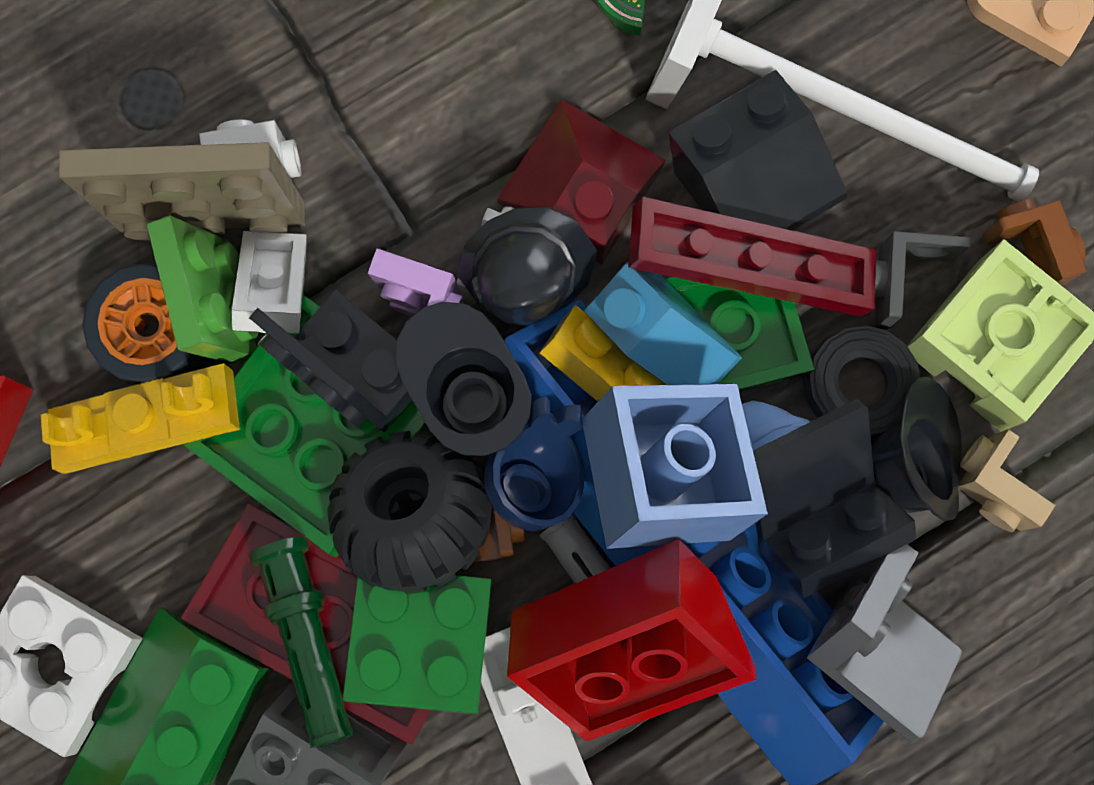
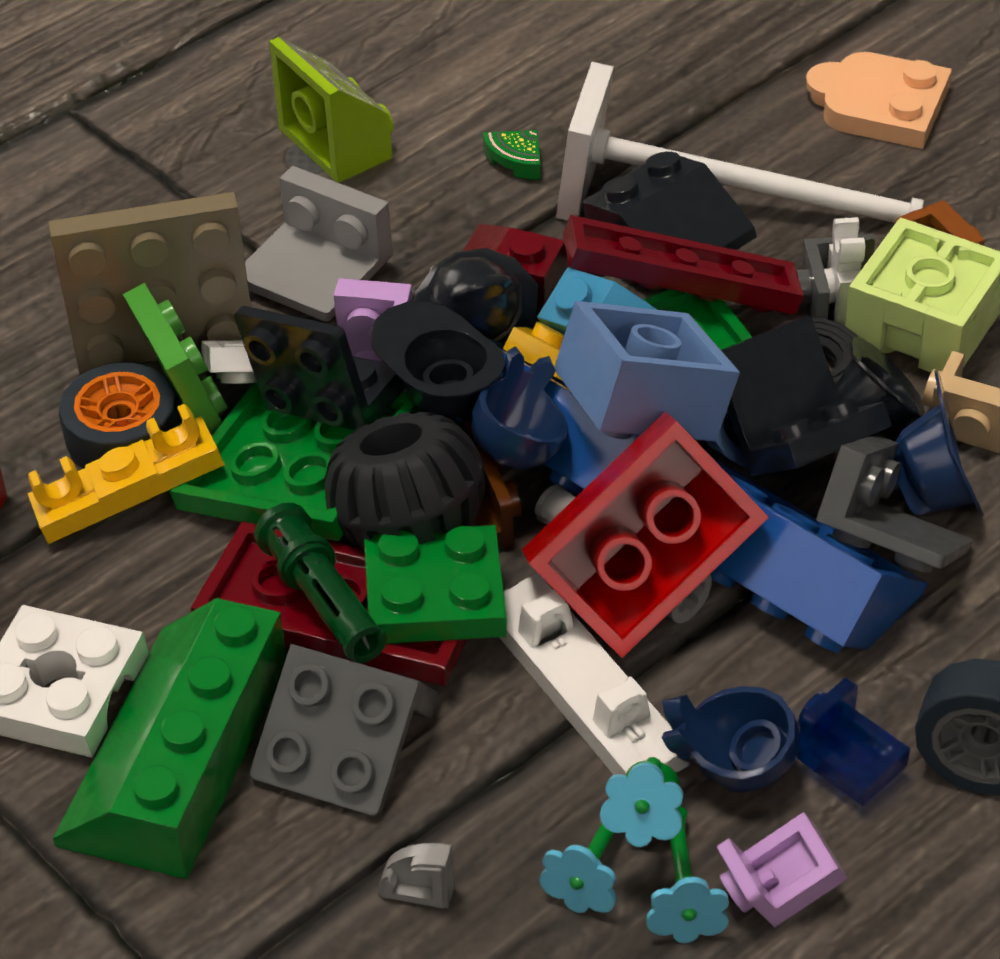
camera: 10 degrees left, 35 degrees down
(378, 124) = (324, 237): none -> light grey bracket
(927, 280) = (843, 264): none -> white plate
(948, 573) = (931, 462): none -> dark blue piece

